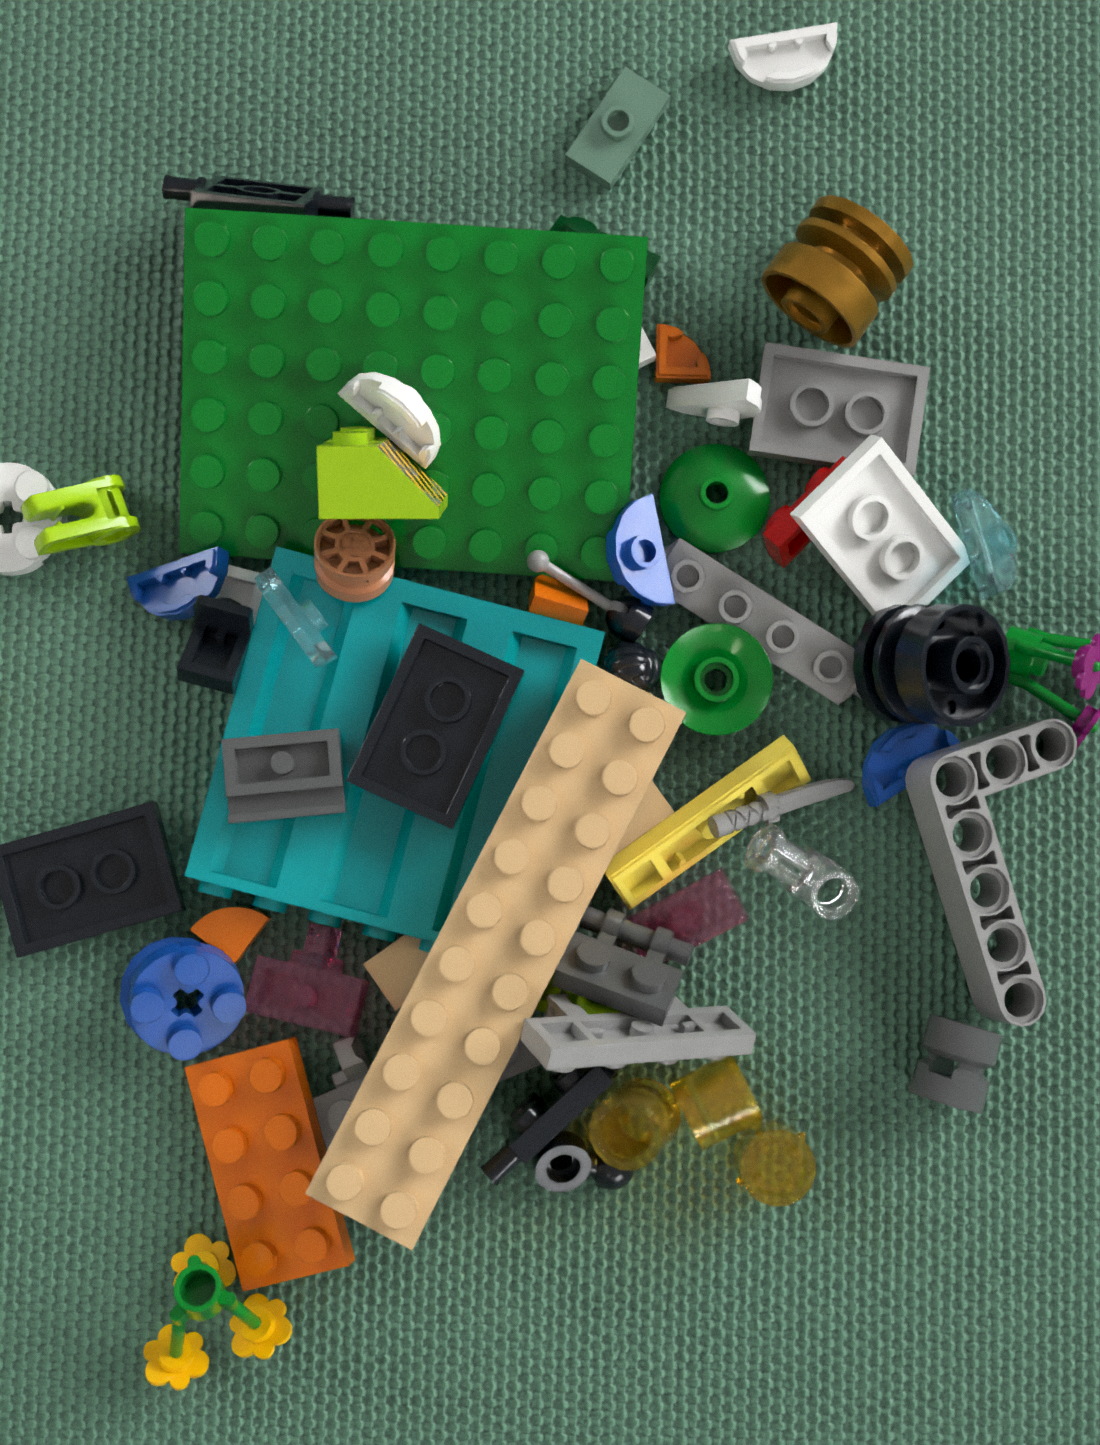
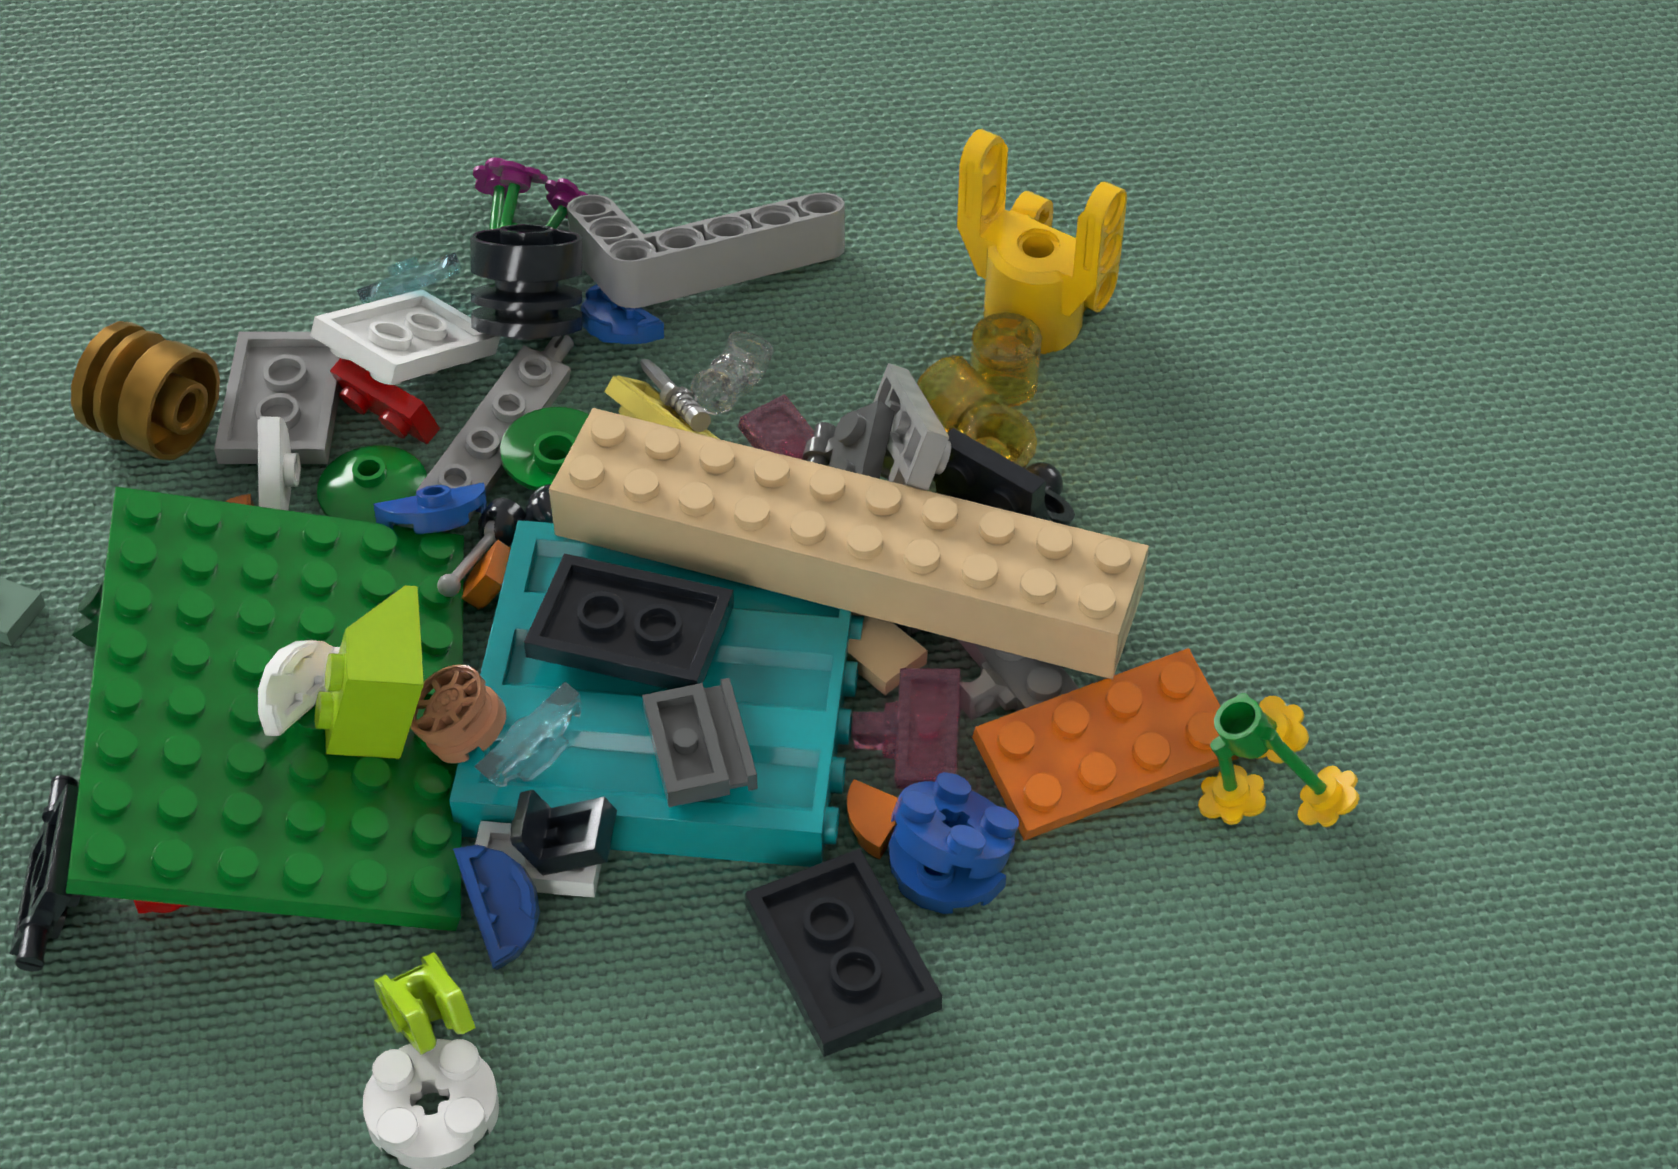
camera: 100 degrees left, 35 degrees down
(846, 1263) = (1027, 261): none -> yellow piece
(971, 1047) = (868, 251): dark grey wheel -> none

